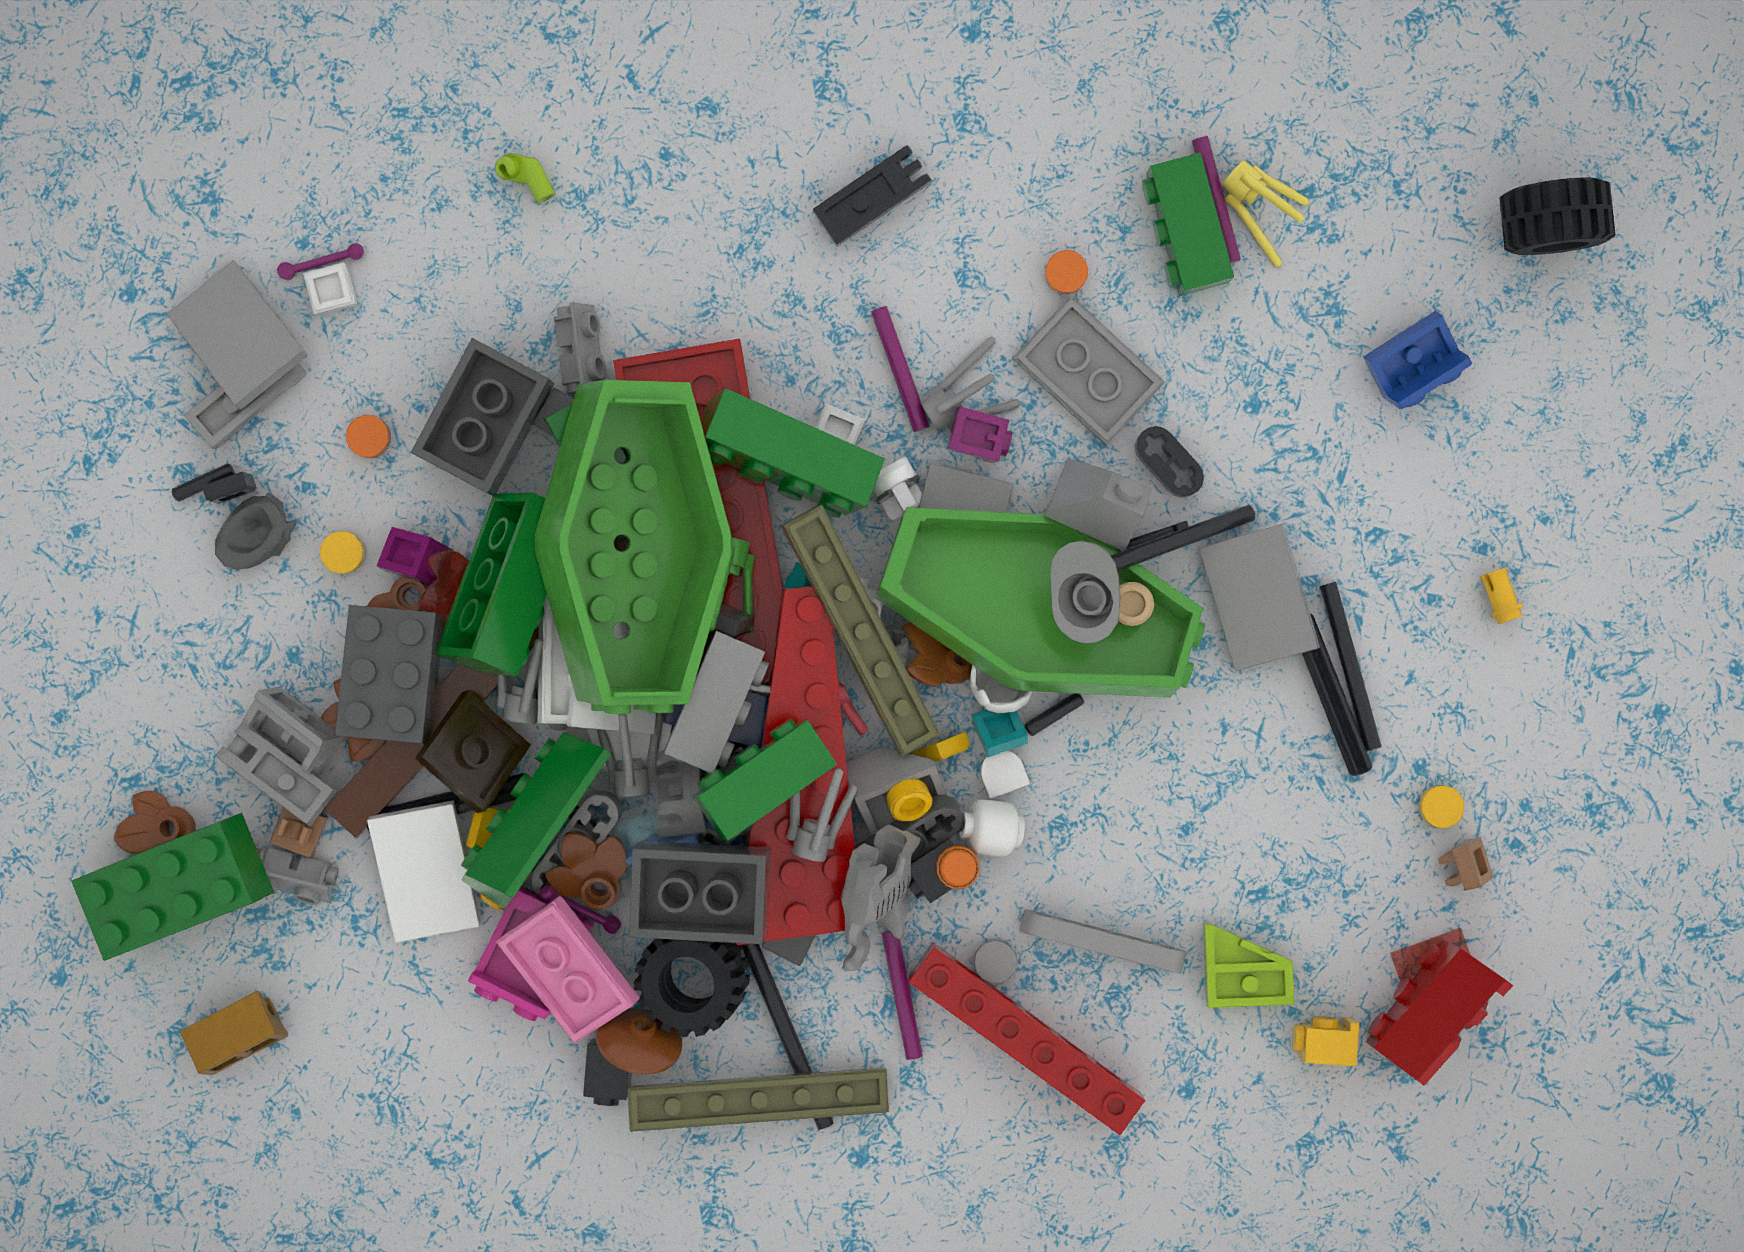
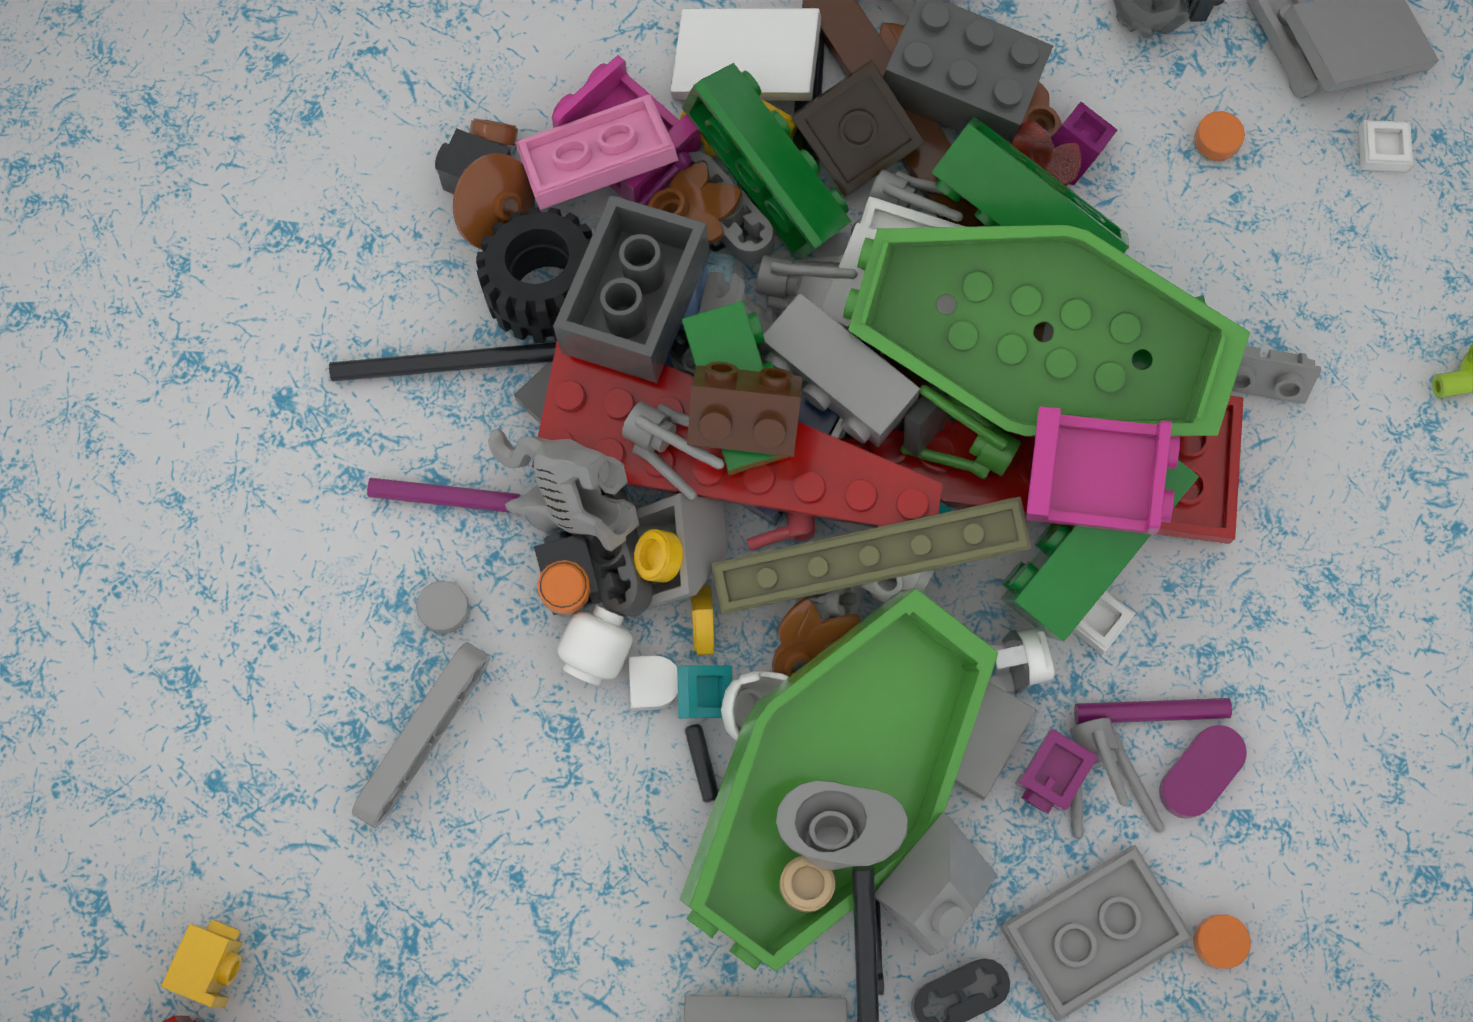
camera: 105 degrees right, 15 degrees down
(287, 271) = (1413, 113): magenta hinge -> none
(342, 552) = (1103, 77): yellow piece -> none
(482, 417) = (1215, 241): dark grey brick -> none
(569, 1066) = (494, 131): none -> dark orange tile
(750, 469) = (1101, 473): none -> dark pink panel
(757, 1099) = (385, 305): olive tile -> none
(788, 766) = (744, 409): none -> reddish brown bracket
(870, 196) = (1365, 738): black hinge -> none
(937, 317) = (1202, 771): none -> magenta tile
(1026, 1038) = (340, 612): red brick -> none
(1244, 972) = (325, 890): lime wing -> none

